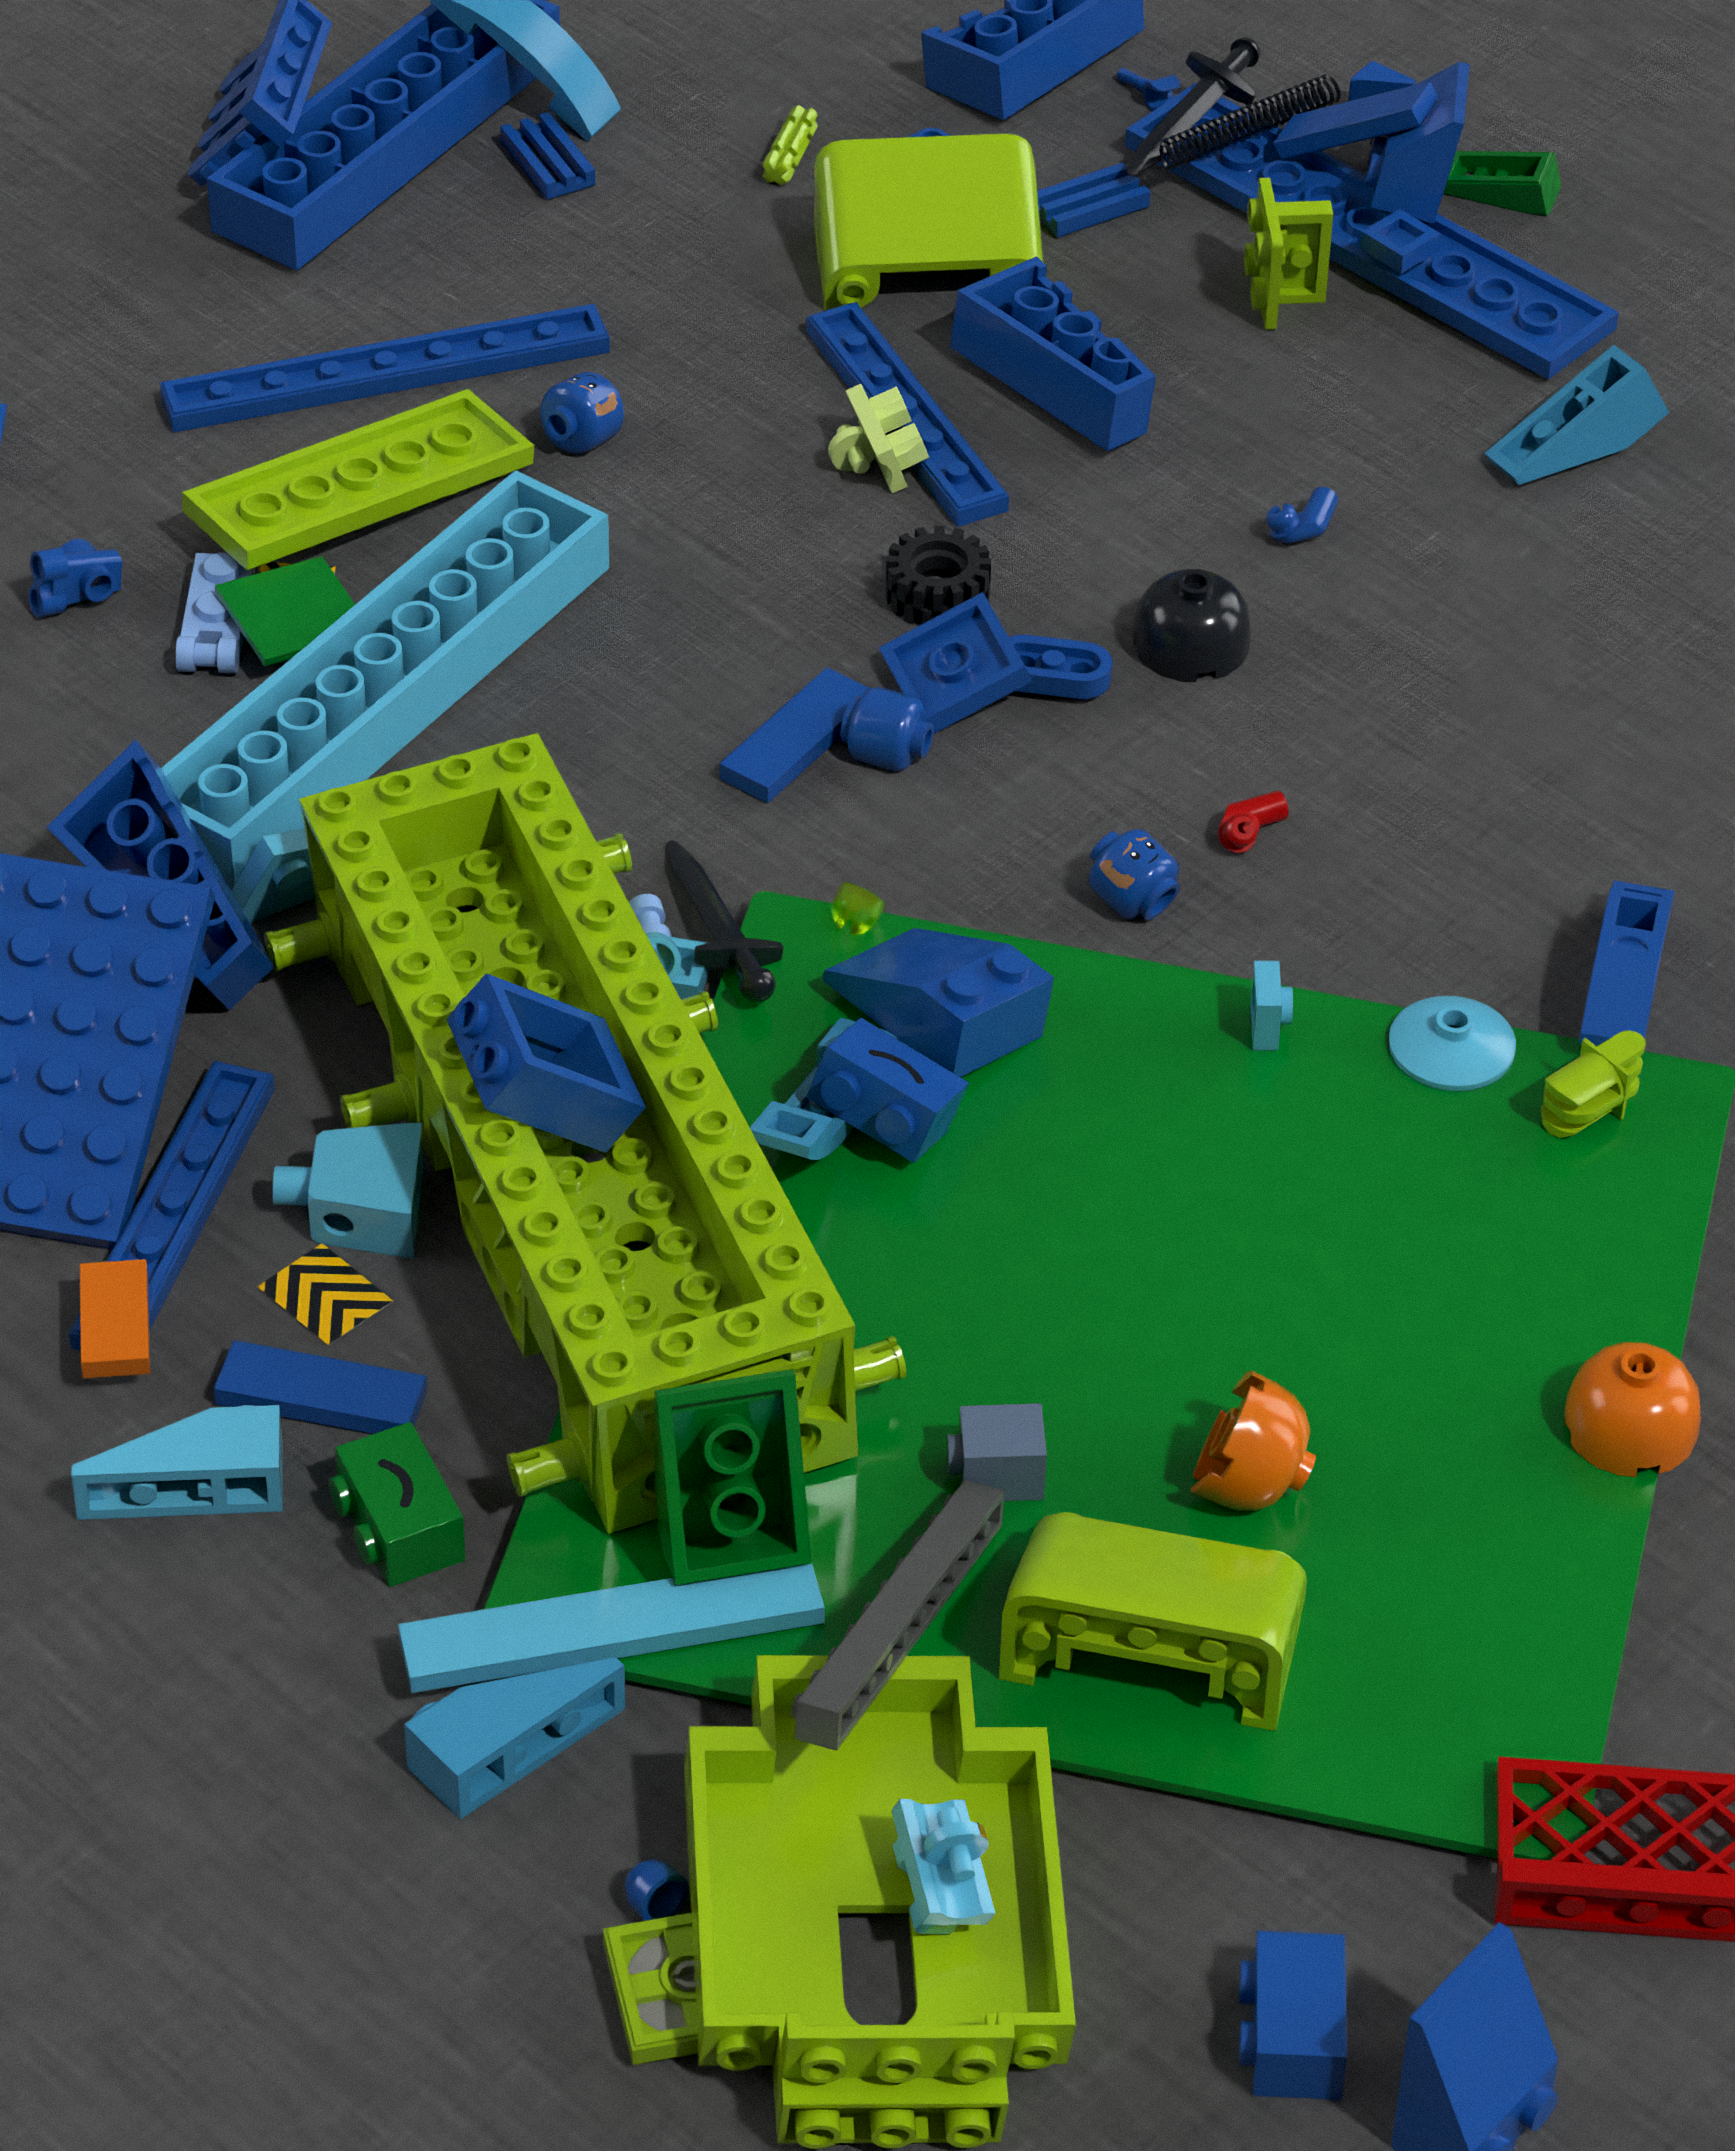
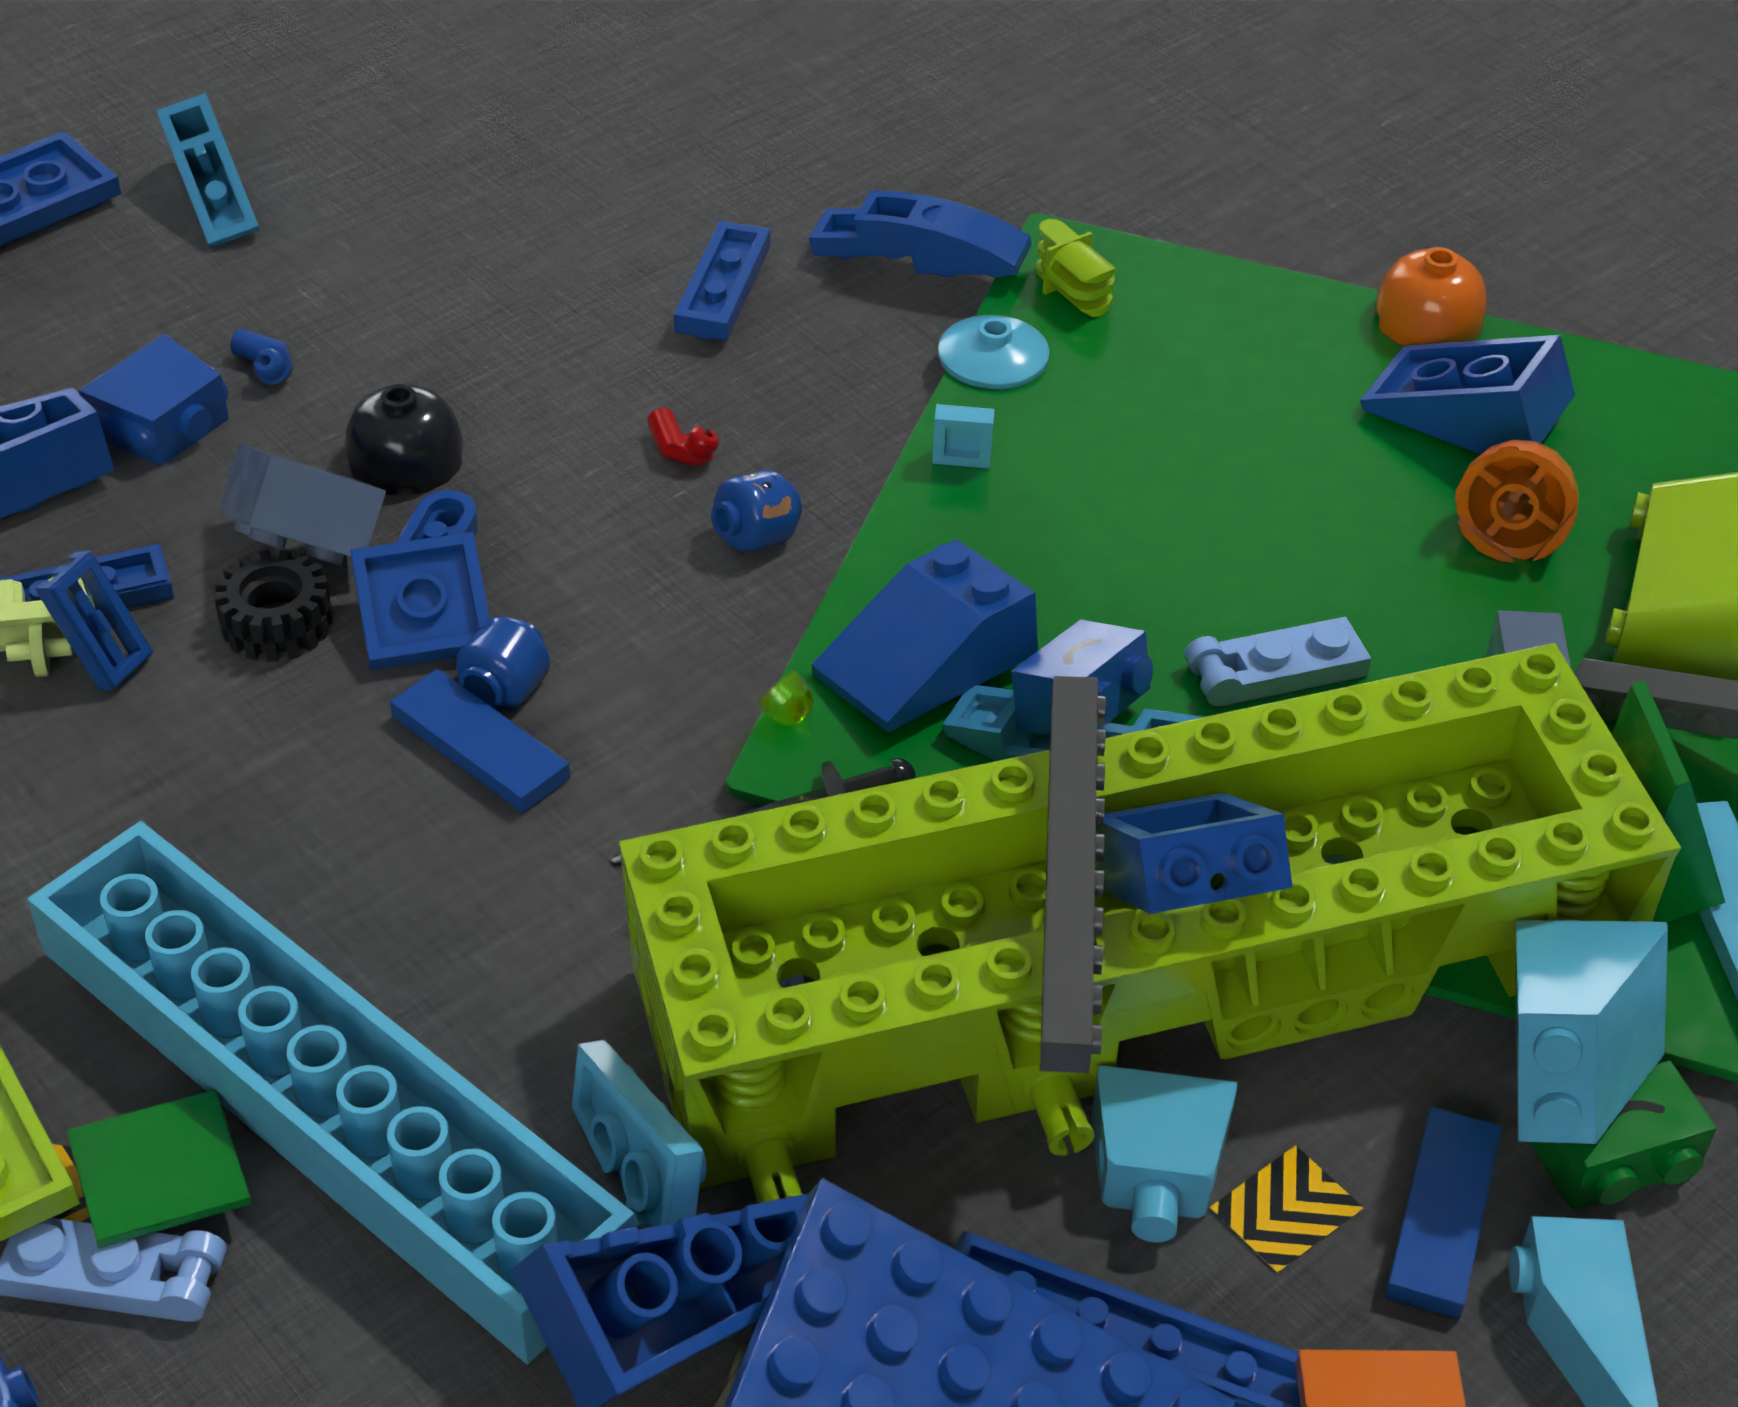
camera: 85 degrees left, 0 degrees up
(439, 1393) = (1585, 1022): none -> medium azure slope
(558, 971) = (1071, 877): none -> dark grey piece
(874, 412) = (88, 628): none -> blue tile
(982, 1268) = (1277, 661): none -> light blue plate
(1040, 549) = (289, 499): none -> sand blue brick
(1204, 455) = (158, 401): none -> blue torso
(1451, 1435) = (1476, 390): none -> blue slope
(1524, 824) = (722, 281): none -> blue plate

